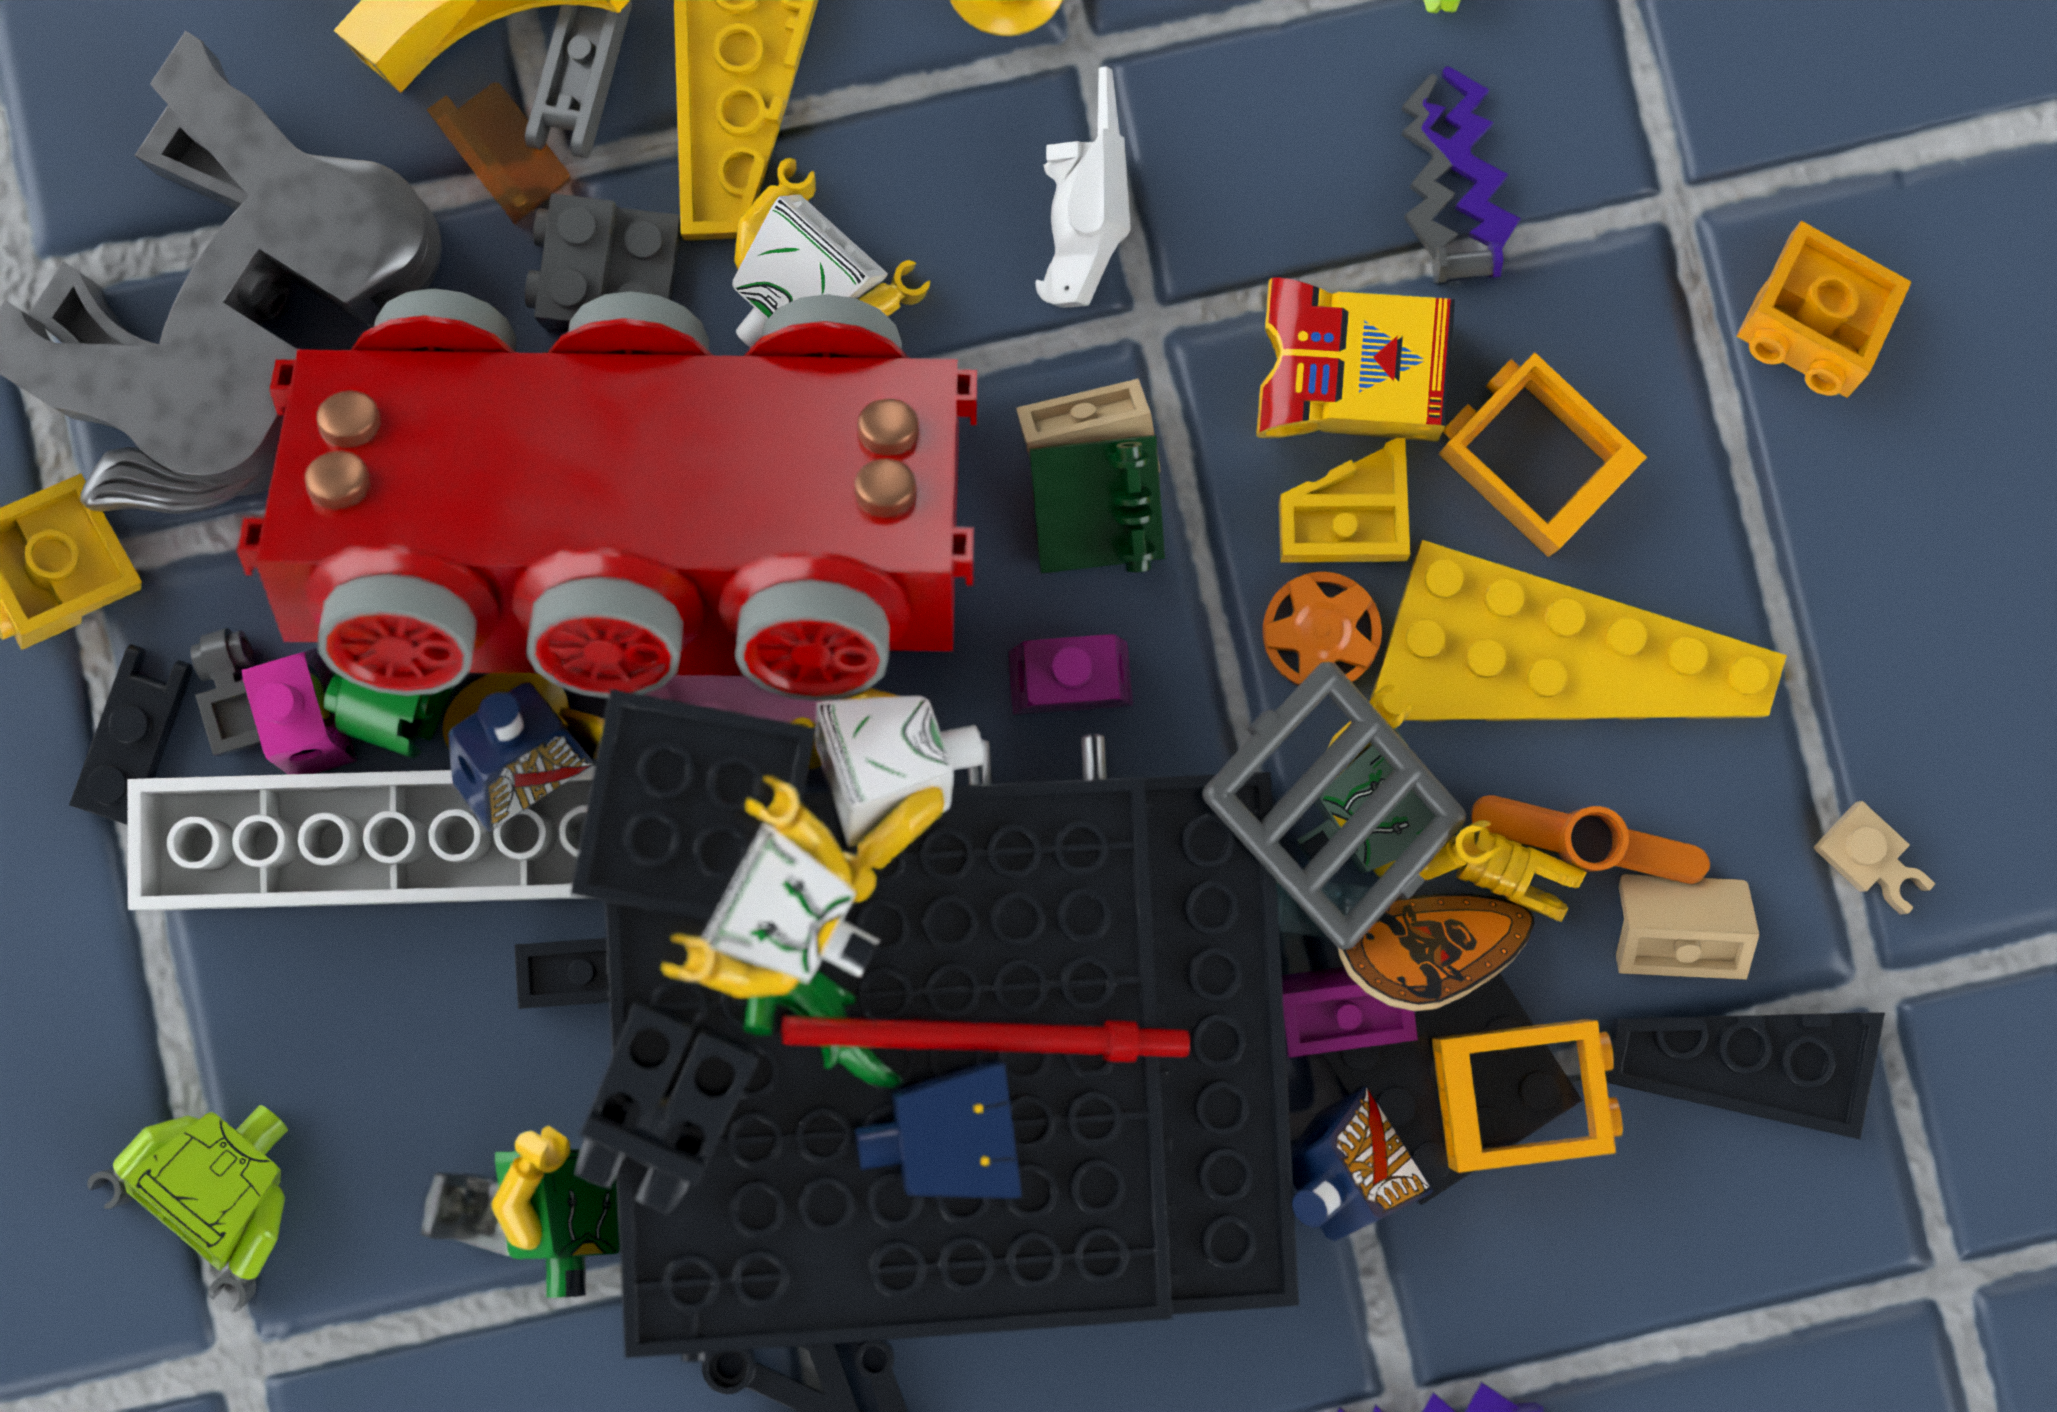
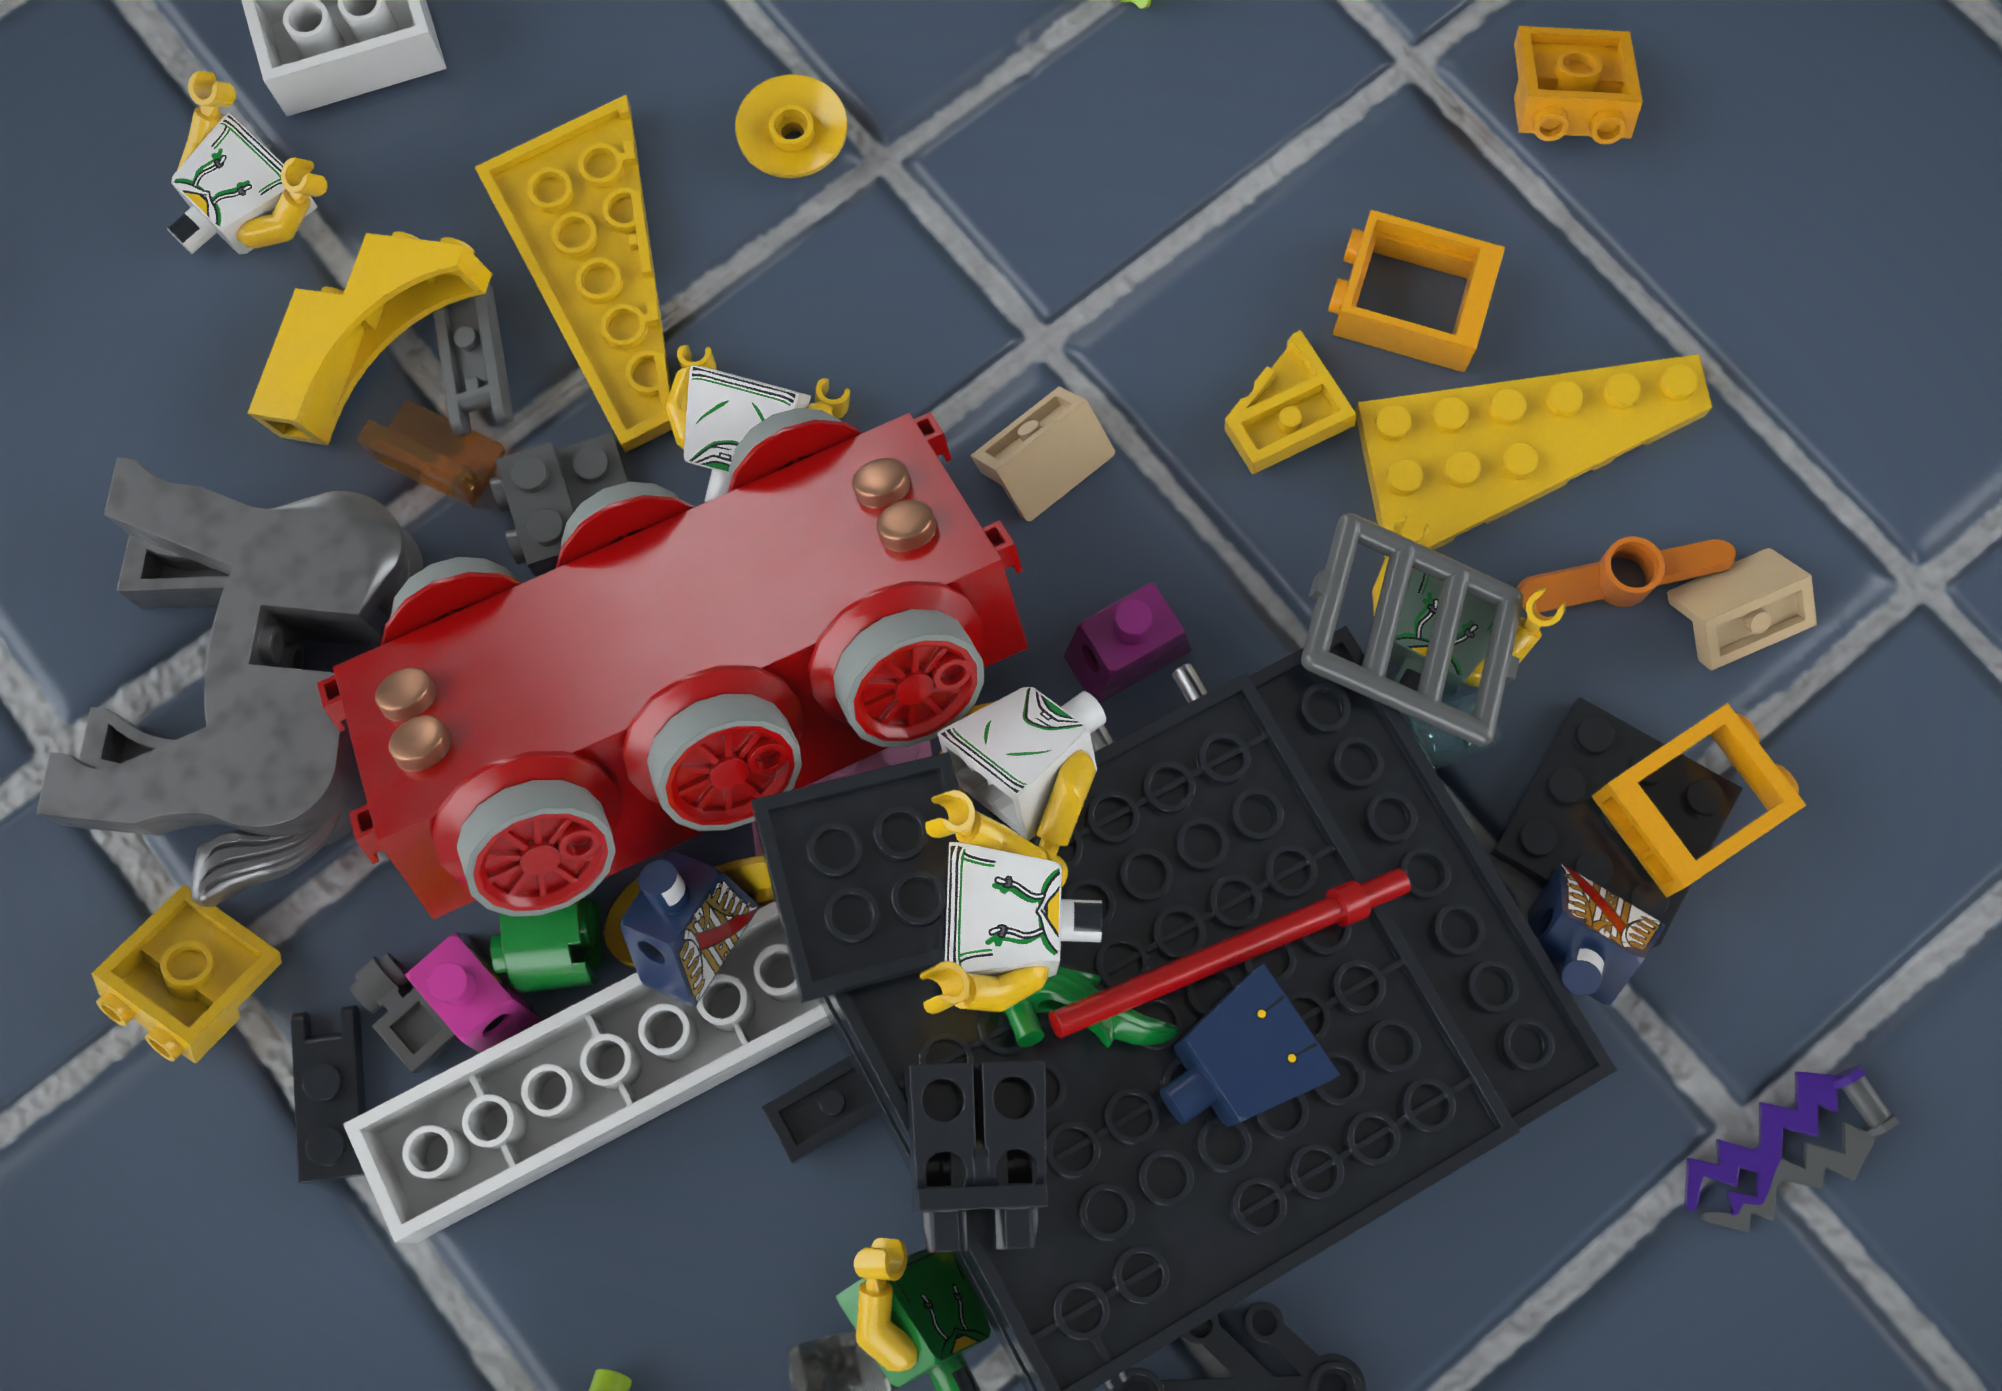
camera: 25 degrees left, 10 degrees down
(1088, 206) = (948, 272): white animal -> none
(1098, 504) = (1079, 496): dark green hinge -> none
(1321, 626) = (1310, 510): orange wheel -> none
(1333, 1013) = (1517, 800): magenta panel -> none
(1355, 363) = (1232, 287): piece -> none
(1437, 948) = (1558, 714): shield -> none
(1456, 154) = (1220, 103): piece -> none
(1513, 870) = (1582, 629): yellow hinge -> none
(1767, 1066) = (1876, 686): black wing -> none
(1867, 852) = (1852, 479): tan plate -> none

